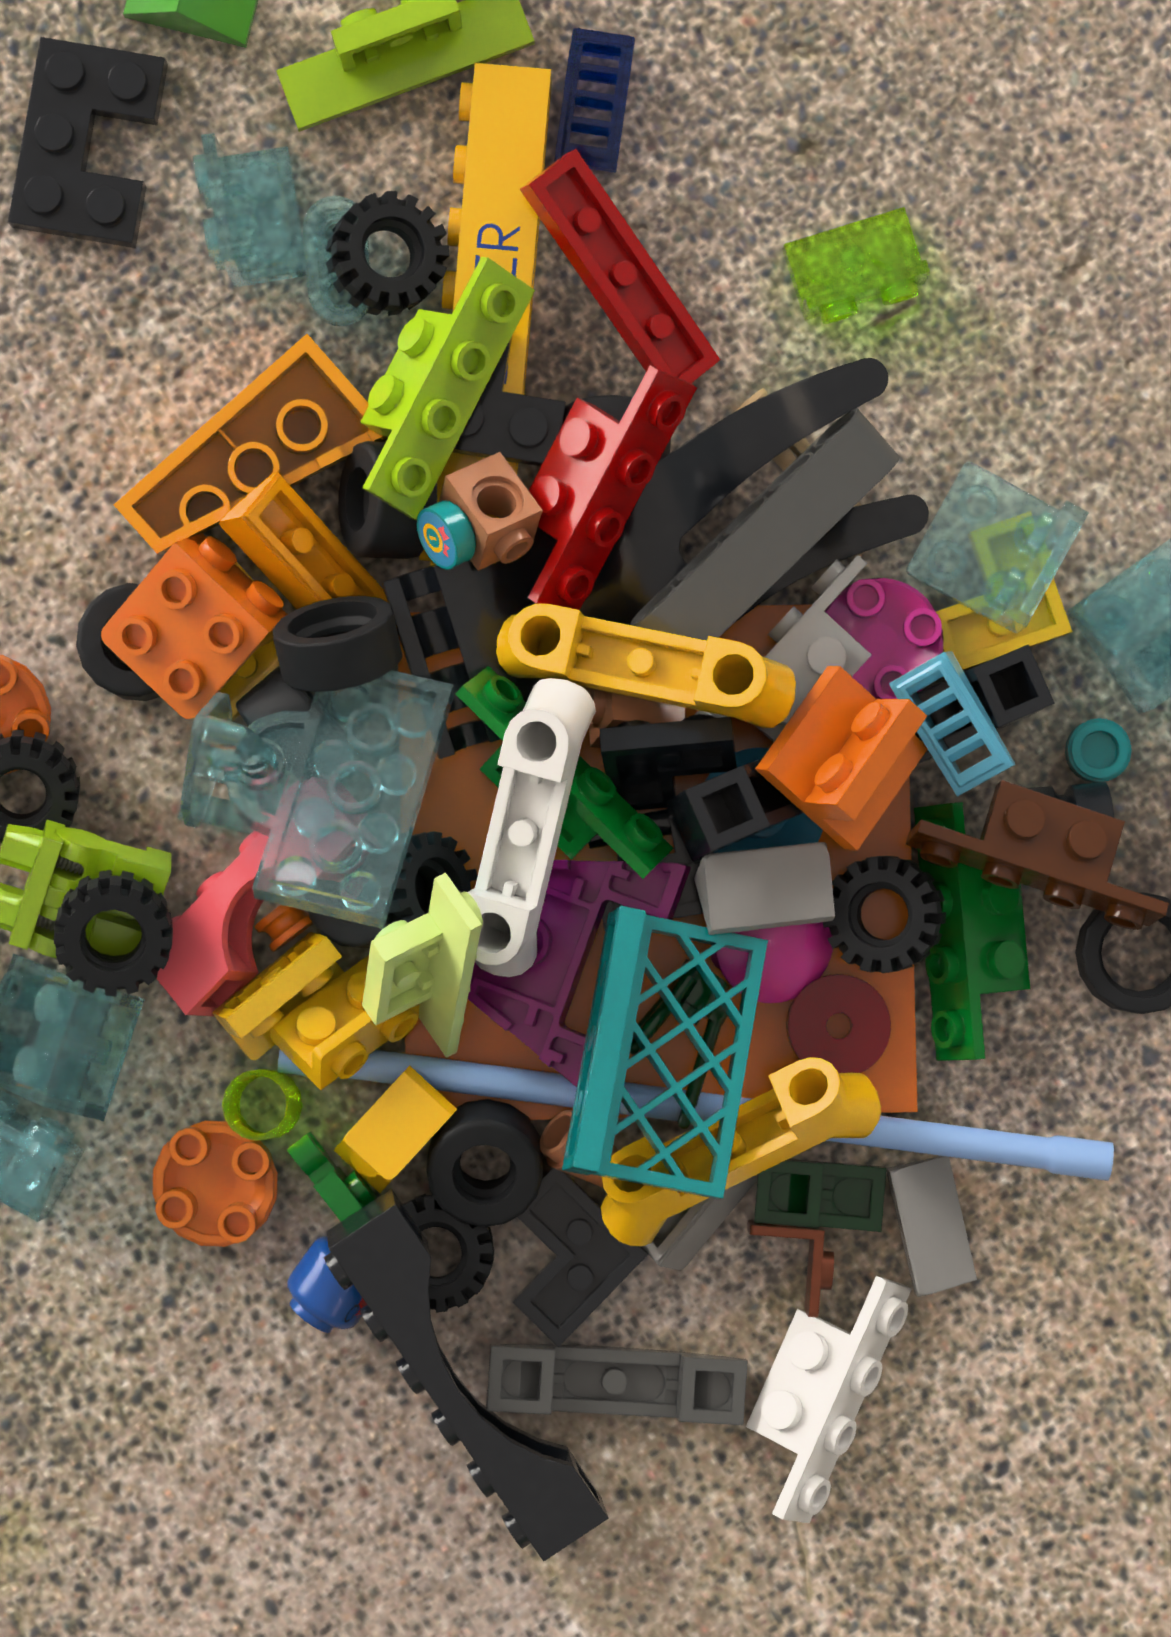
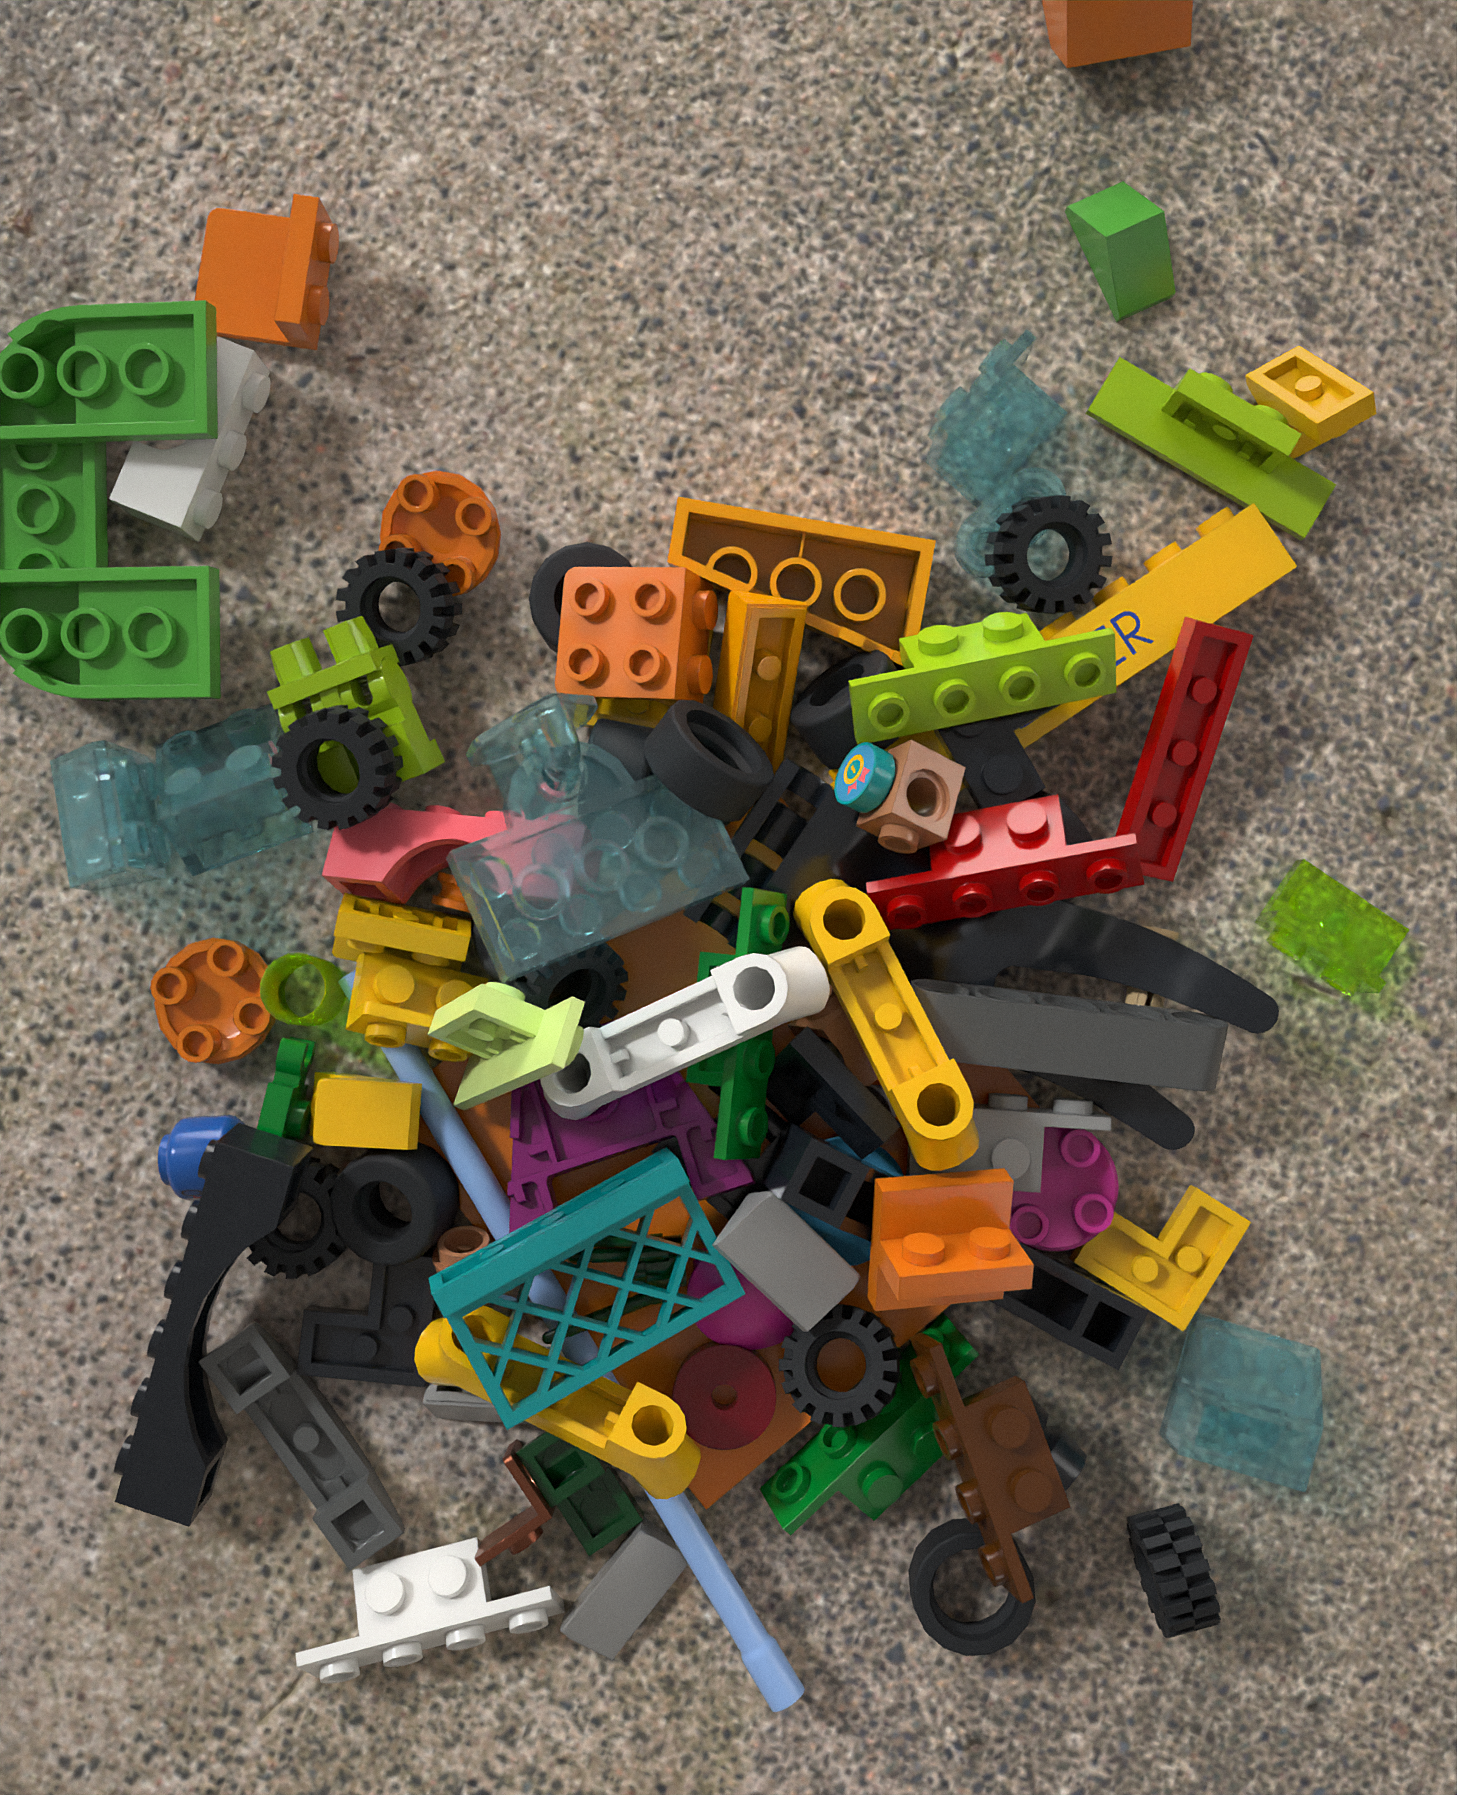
camera: 50 degrees right, 0 degrees up
(51, 178) = (893, 255): black plate -> none
(605, 46) = (1344, 595): clear blue slope -> none
(947, 666) = (1065, 1255): medium azure slope -> none
(995, 547) = (1205, 1224): clear light blue bracket -> none
(1098, 750) = (1104, 1423): teal tile -> none

